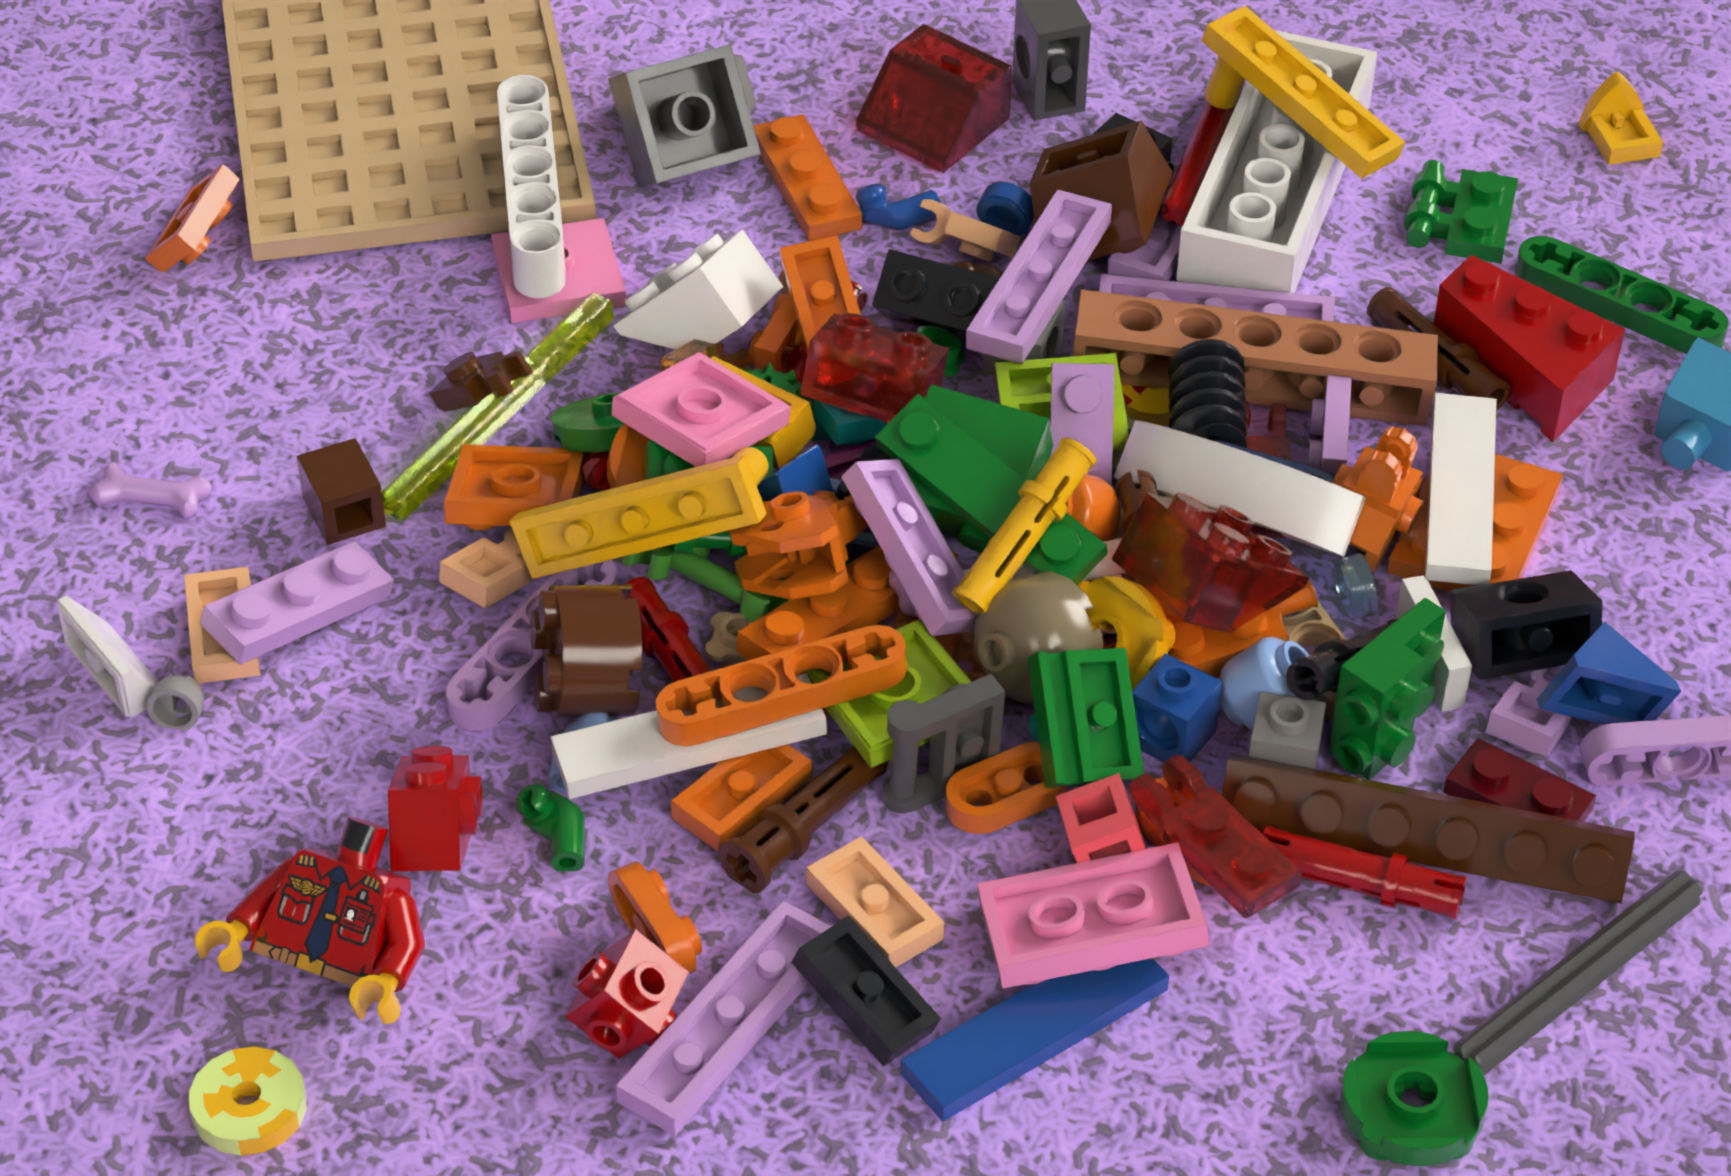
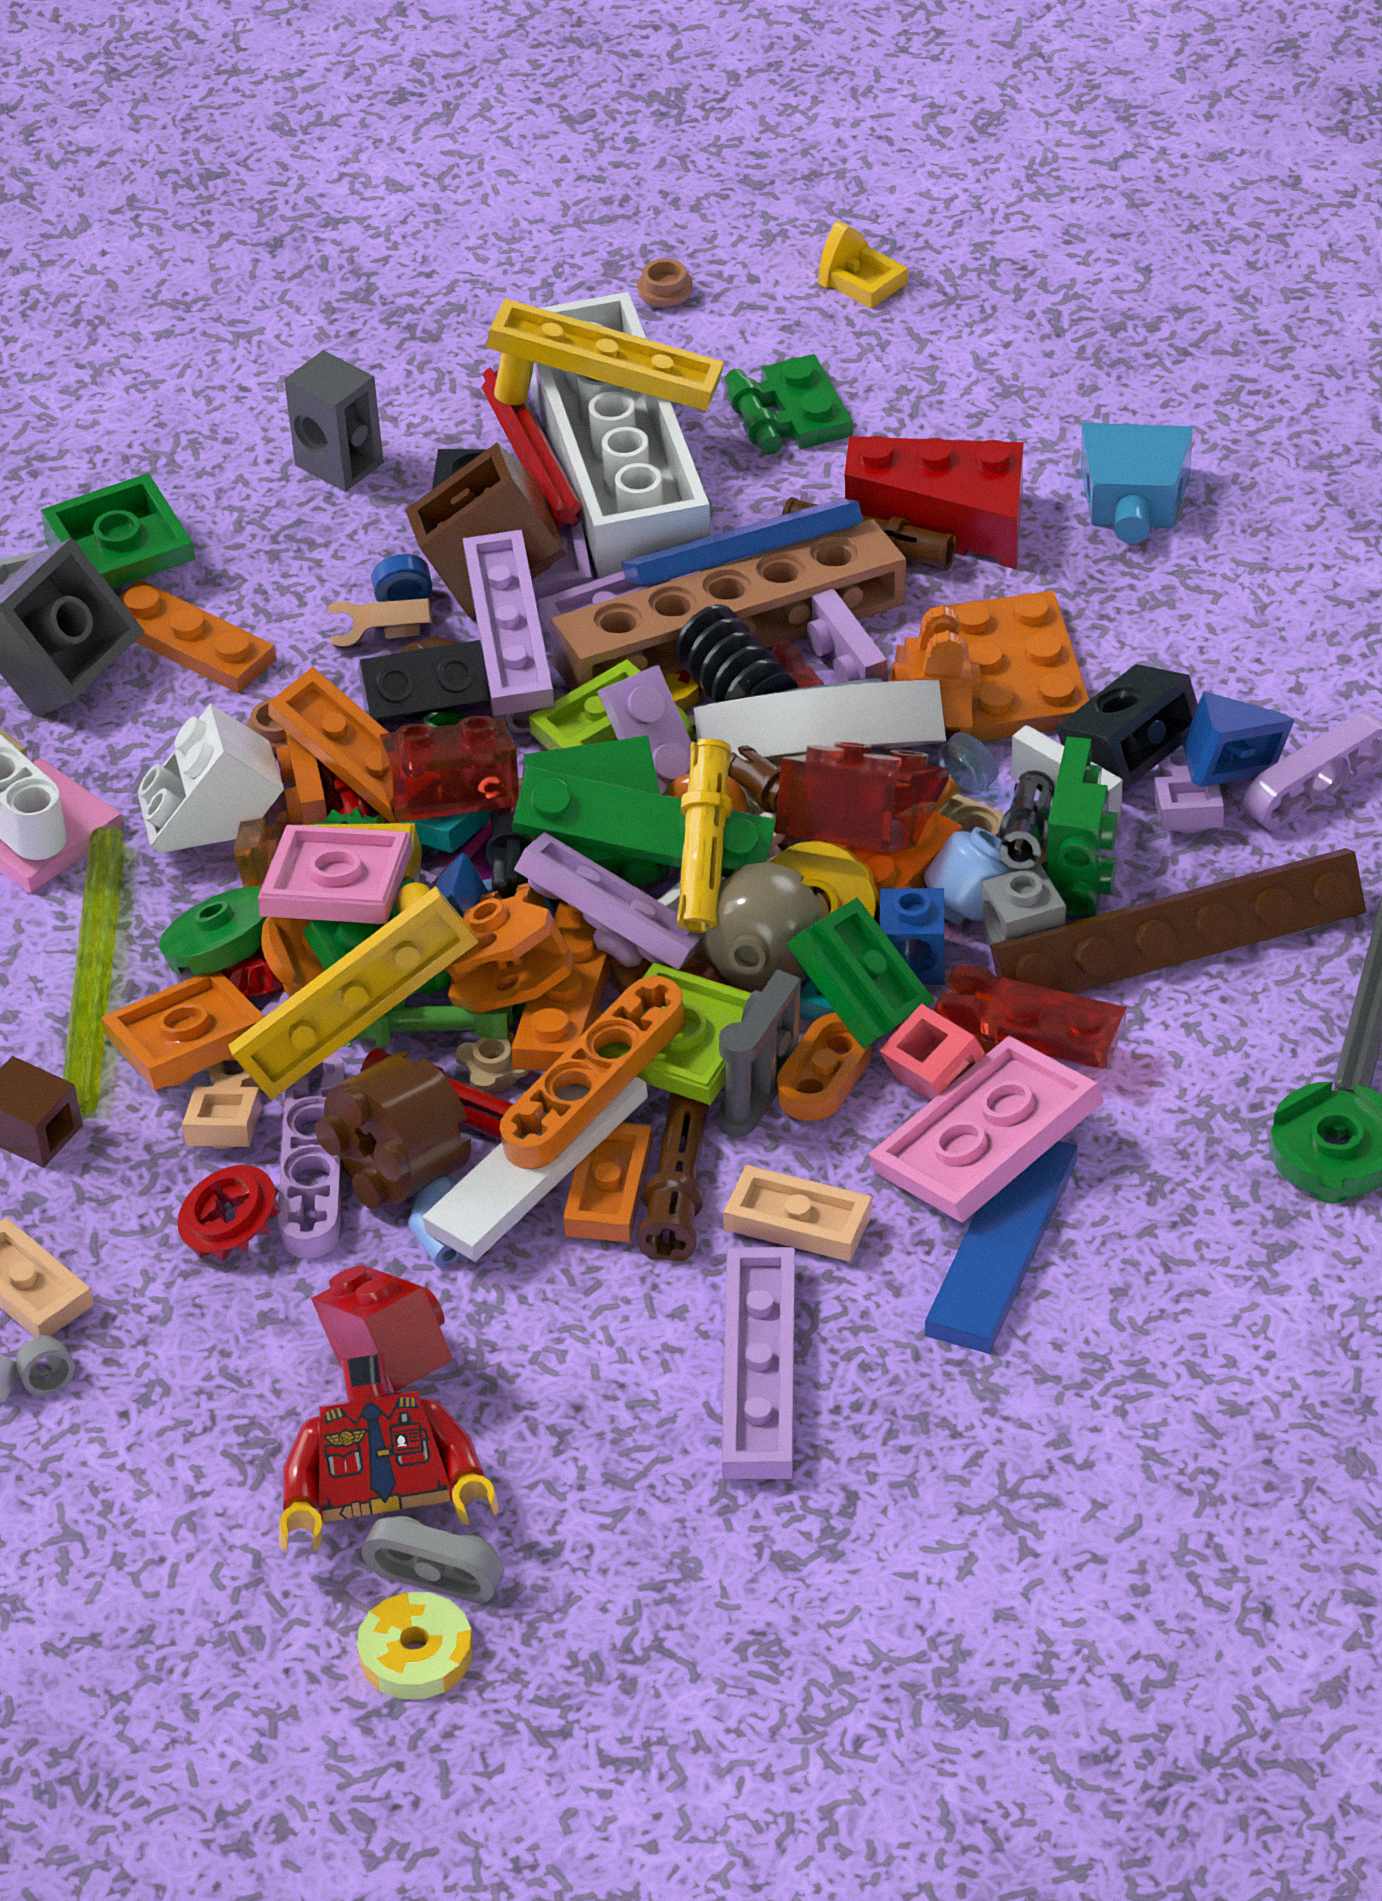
camera: 30 degrees left, 0 degrees up
(296, 602) = (81, 1224): lavender plate -> none
(308, 1022) = (433, 1559): none -> light grey plate
(419, 652) = (203, 1211): none -> red gear
(474, 378) = (59, 955): reddish brown plate -> none
(557, 821) = (474, 1288): green arm -> none
(626, 994) = (670, 1386): red brick -> none
(645, 906) = (632, 1321): orange plate -> none
(808, 69) = (122, 530): none -> green plate
(866, 990) = (856, 1282): black plate -> none
(893, 214) = (297, 632): blue arm -> none
(936, 98) = (258, 509): clear red slope -> none
(1304, 303) = (742, 542): none -> blue tile
(1372, 874) = (1175, 984): red pin -> none
(1438, 65) = (664, 283): none -> nougat plate
(1461, 490) = (996, 640): white tile -> none
(1506, 780) = (1202, 861): dark red plate -> none
(1623, 291) = (976, 416): green beam -> none

